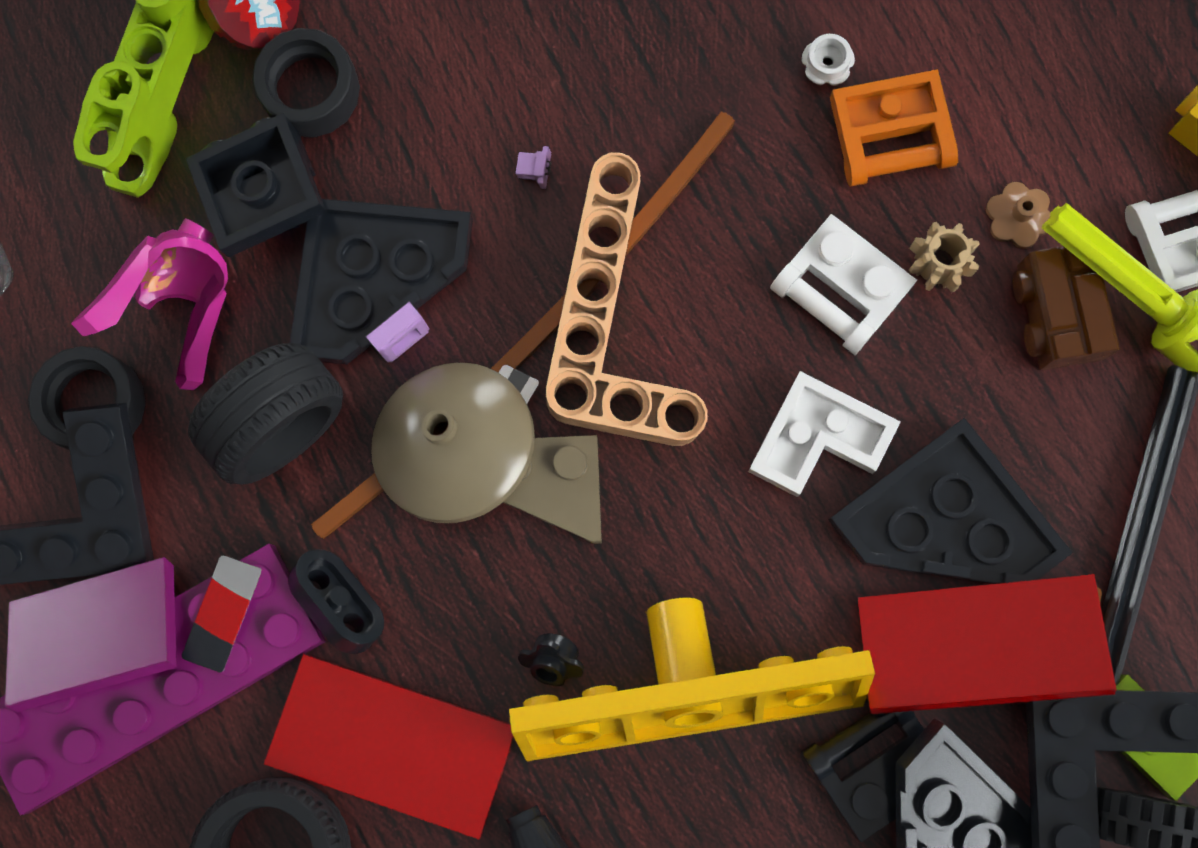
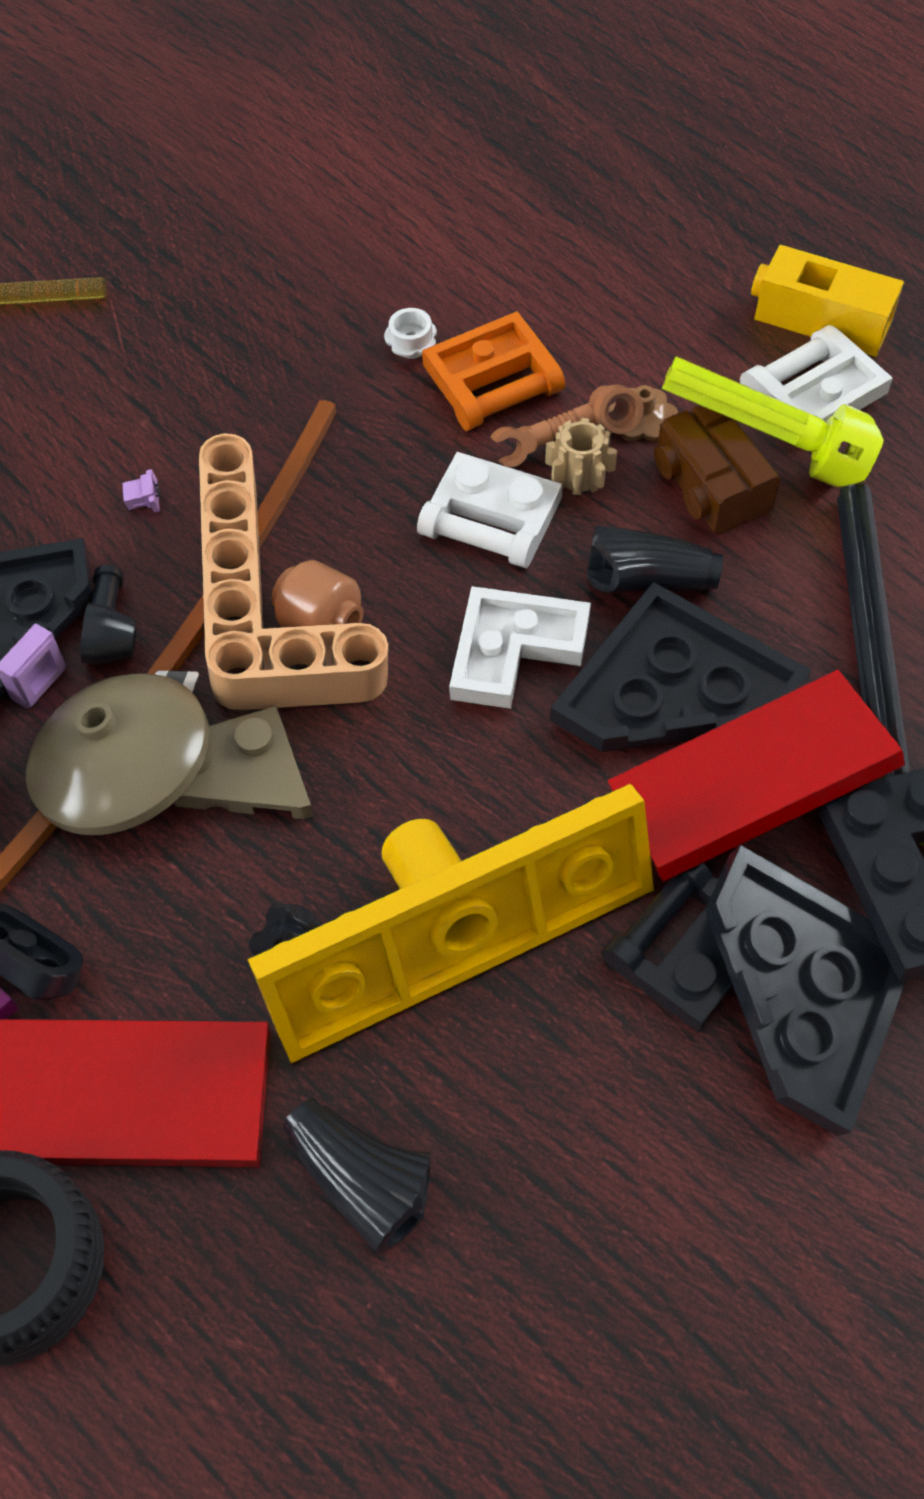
camera: 25 degrees left, 20 degrees down
(471, 315) = (107, 632): none -> black bar
(659, 344) = (316, 596): none -> nougat head
(958, 388) = (636, 559): none -> black piece
(988, 213) = (621, 420): none -> nougat brick

